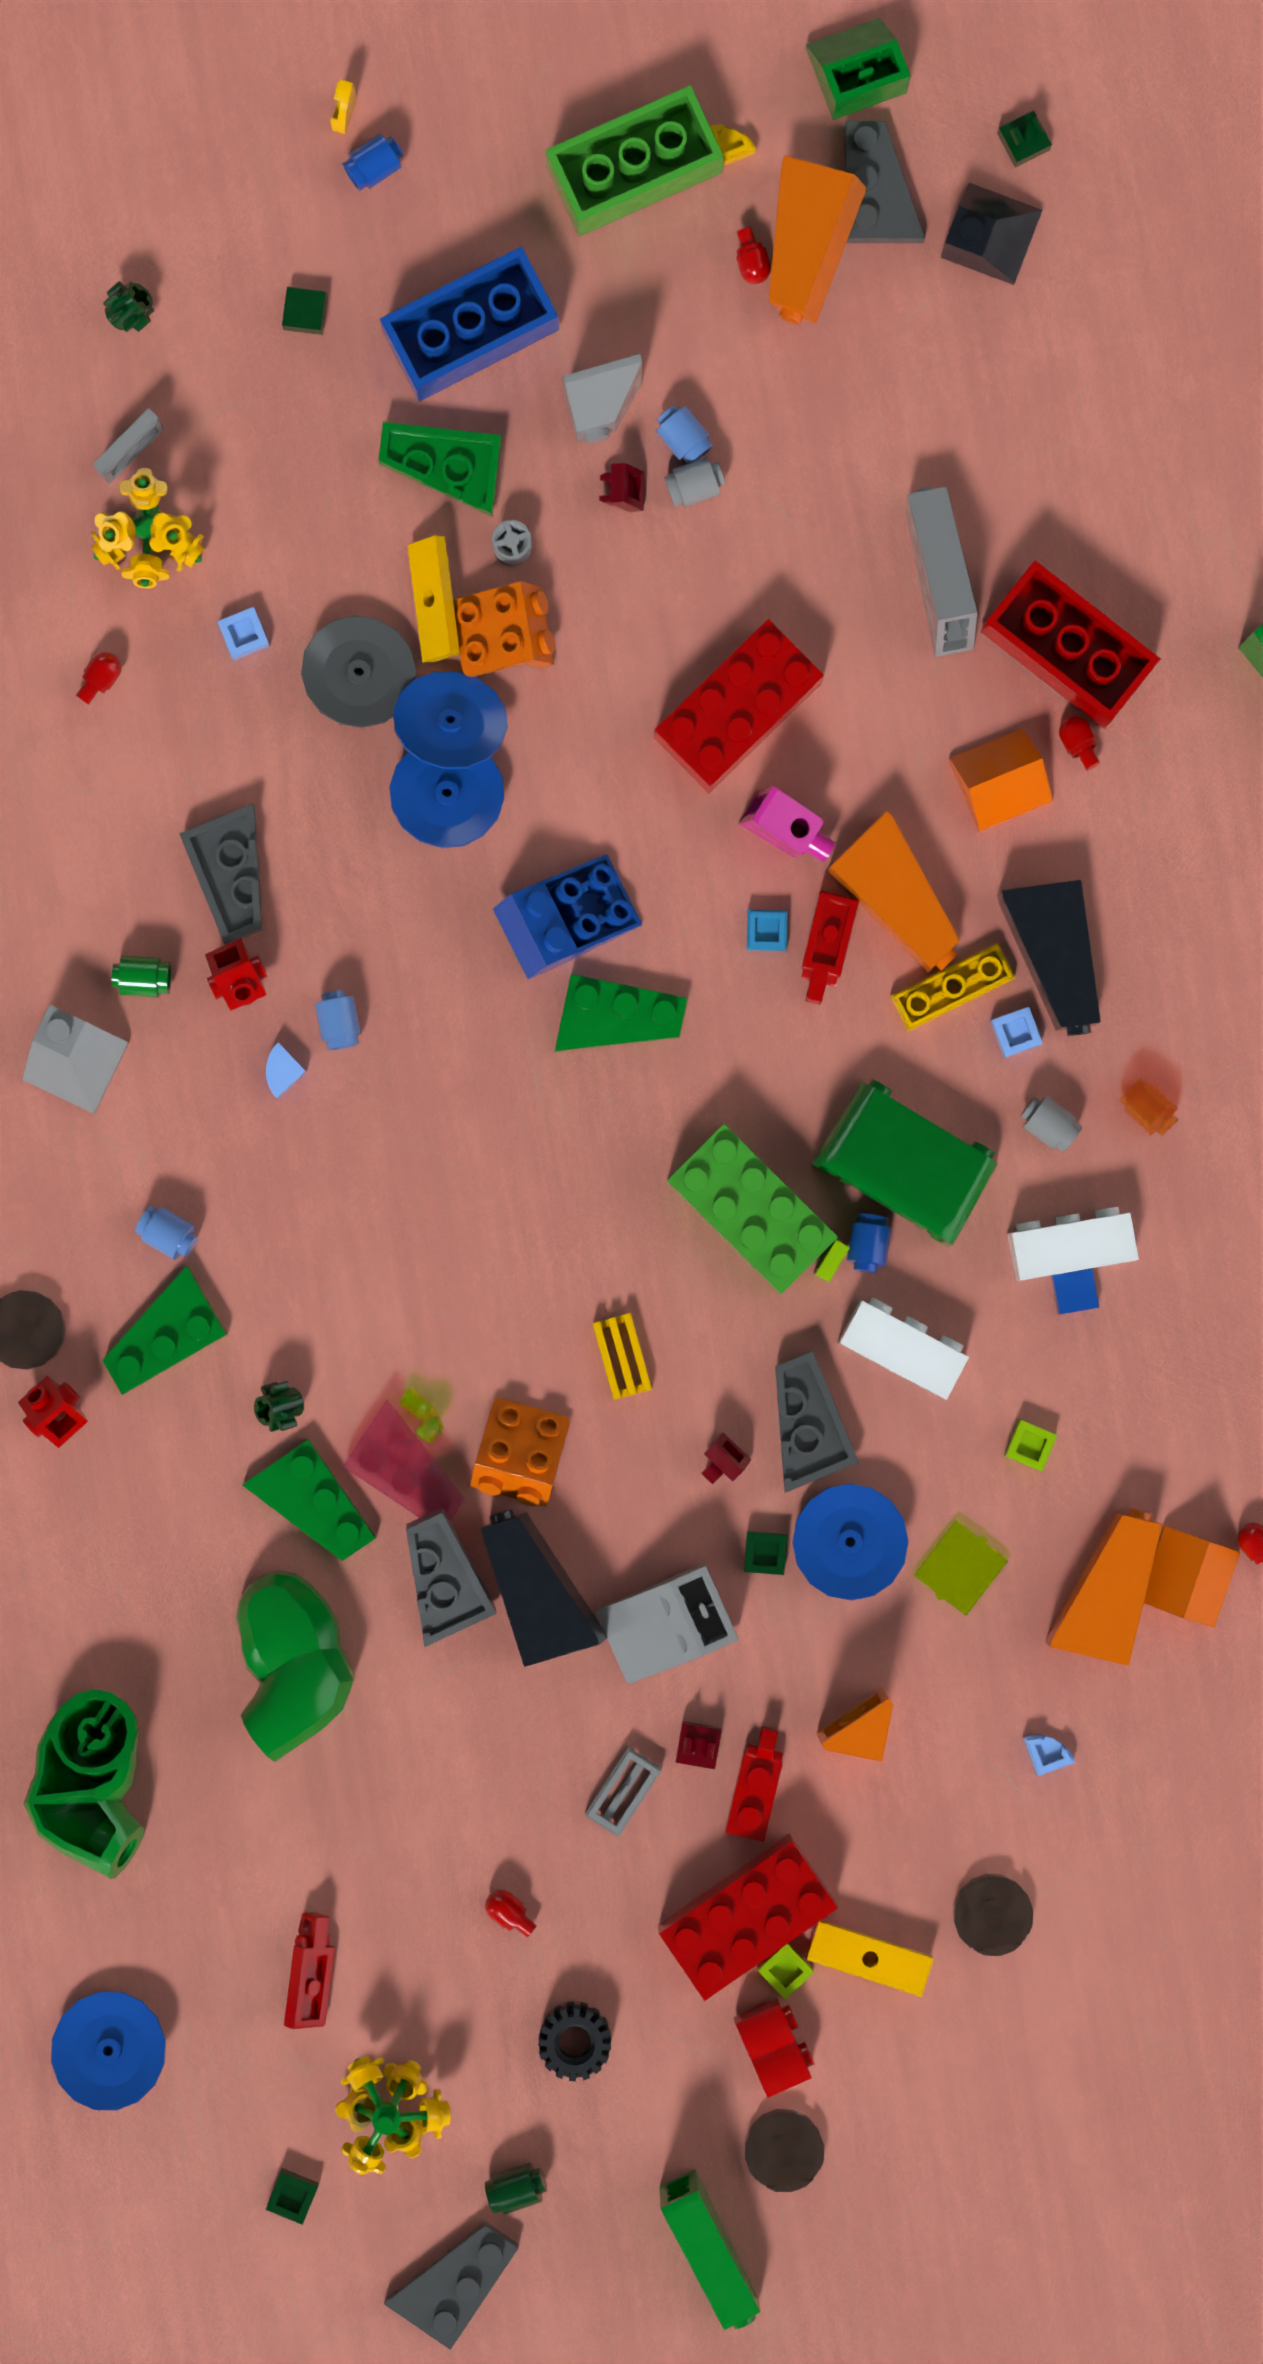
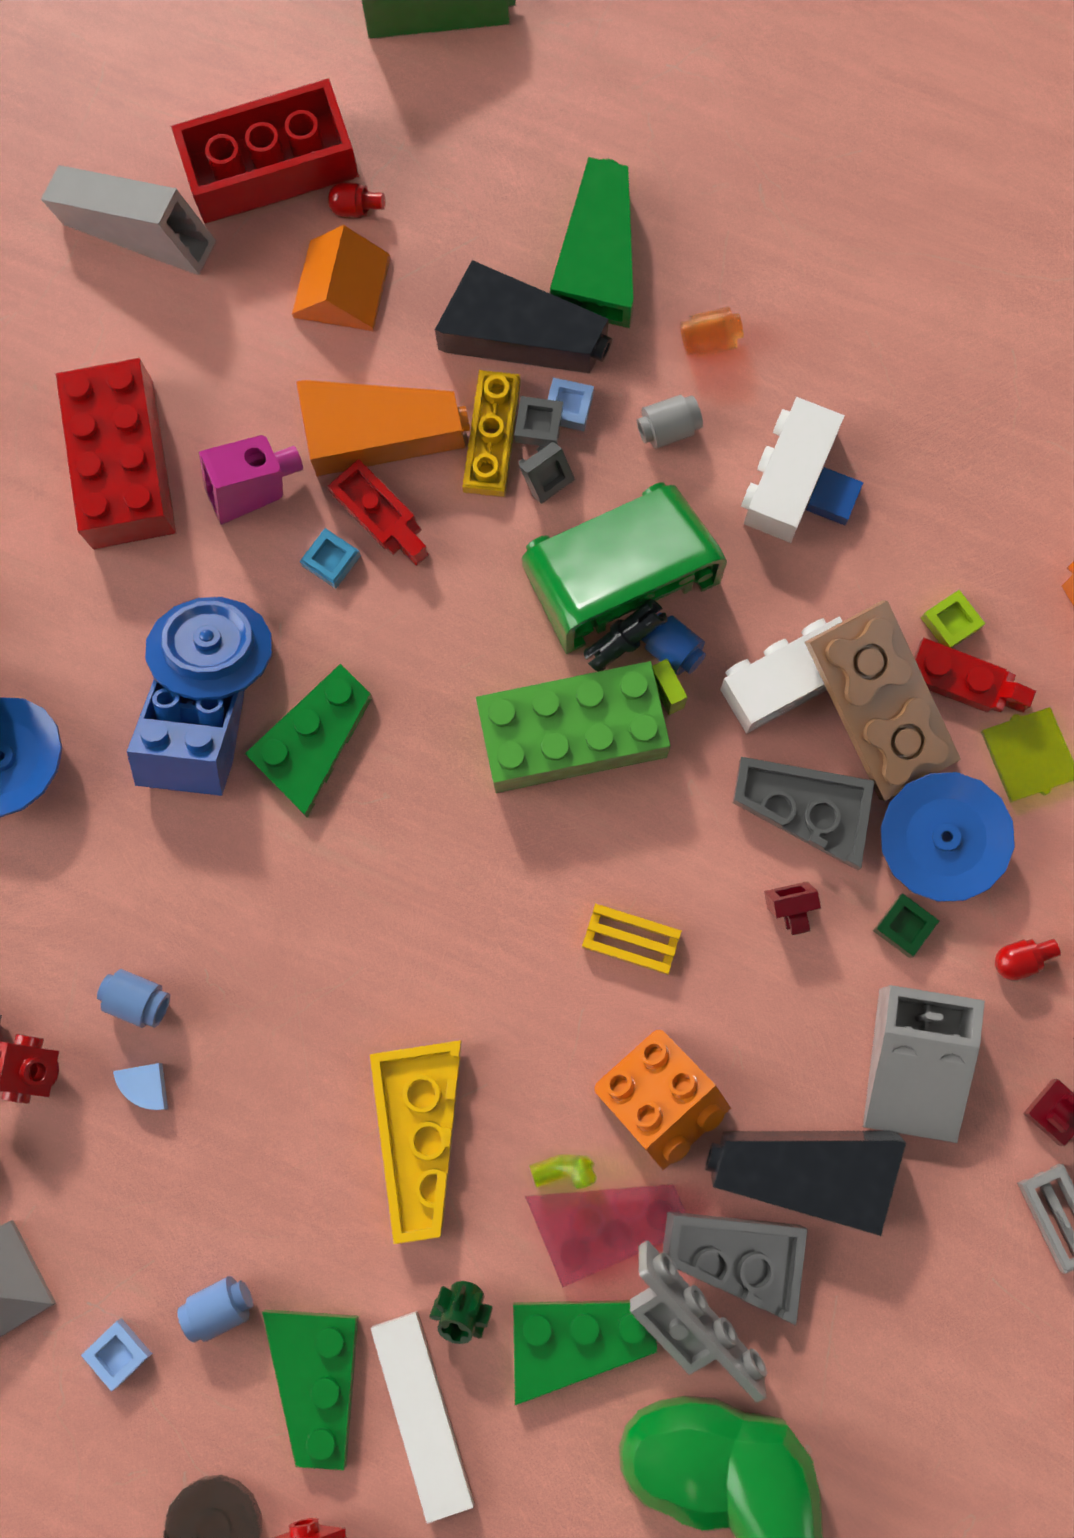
camera: 50 degrees left, 10 degrees down
(90, 1182) = (116, 1354): none -> light blue tile
(192, 1424) = (422, 1417): none -> white tile
(373, 1572) = (688, 1327): none -> light grey bracket
(386, 1286) = (415, 1122): none -> yellow wing
(633, 889) = (208, 648): none -> blue piece
(796, 1654) = (1024, 958): none -> red cylinder
(848, 1203) = (625, 635): none -> black pin
(924, 1430) = (882, 699): none -> medium nougat piece
(944, 1053) = (546, 472): none -> dark grey tile
(980, 1022) = (538, 421): none -> dark grey tile
(989, 1483) = (970, 679): none -> red hinge
(1158, 972) = (597, 248): none -> green slope

